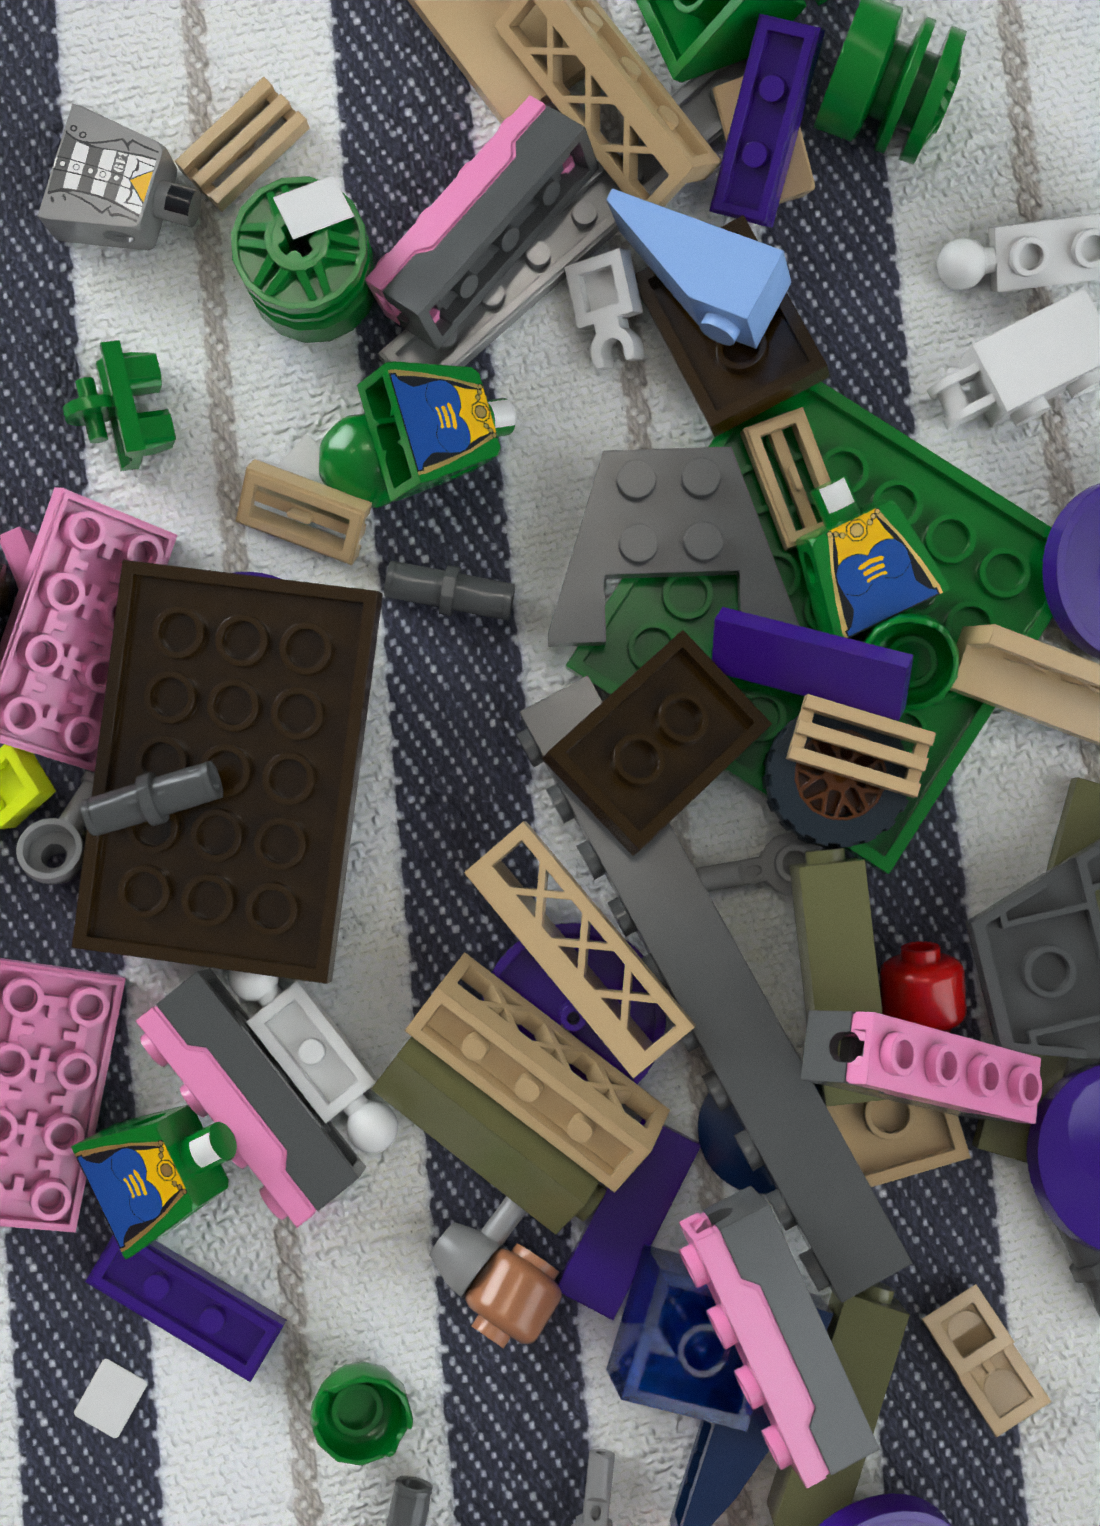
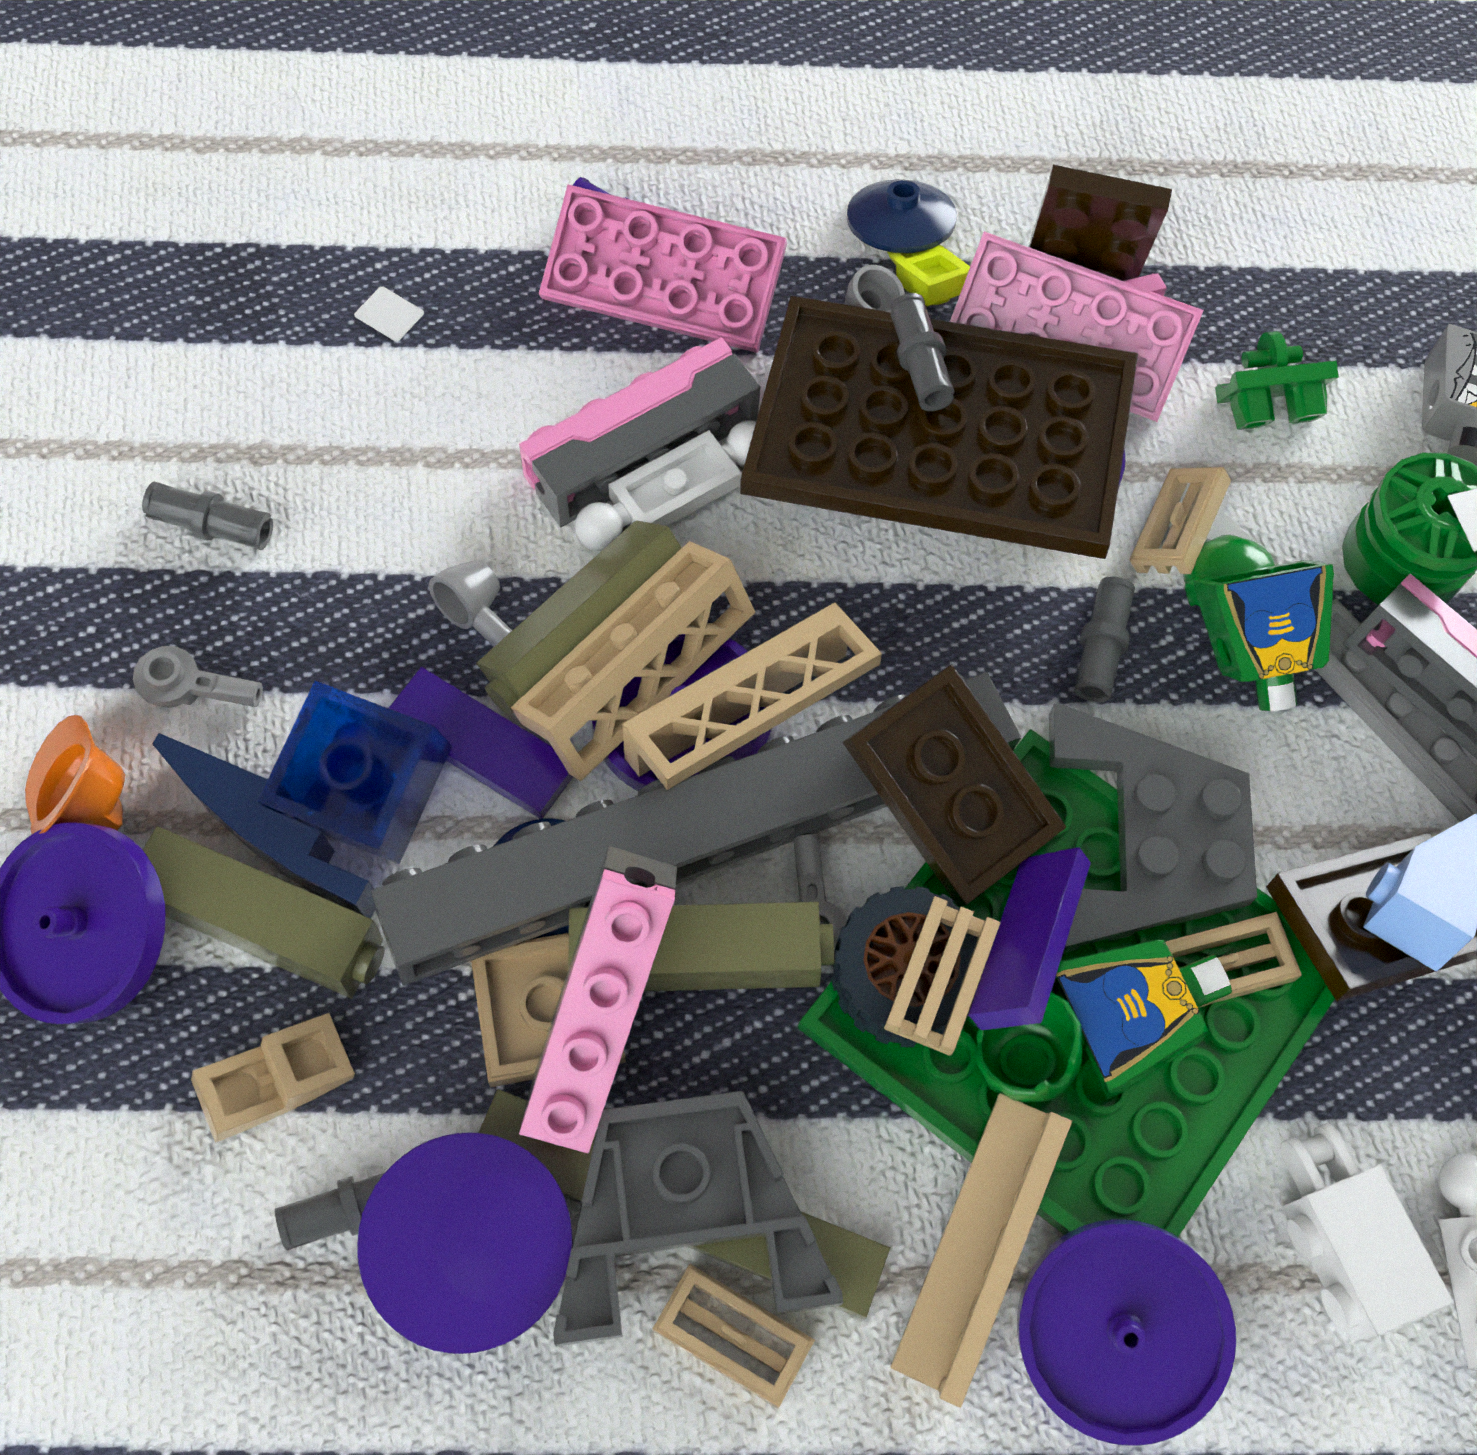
camera: 85 degrees right, 20 degrees down
(155, 1172) = (580, 345): torso -> none
(189, 1305) = (462, 374): dark purple tile -> none
(360, 1413) = (340, 489): green hair -> none
(513, 1296) = (423, 625): nougat head -> none
(603, 298) = (1400, 803): white plate -> none
(778, 1336) = (347, 821): piece -> none
(924, 986) = (672, 1046): red head -> none

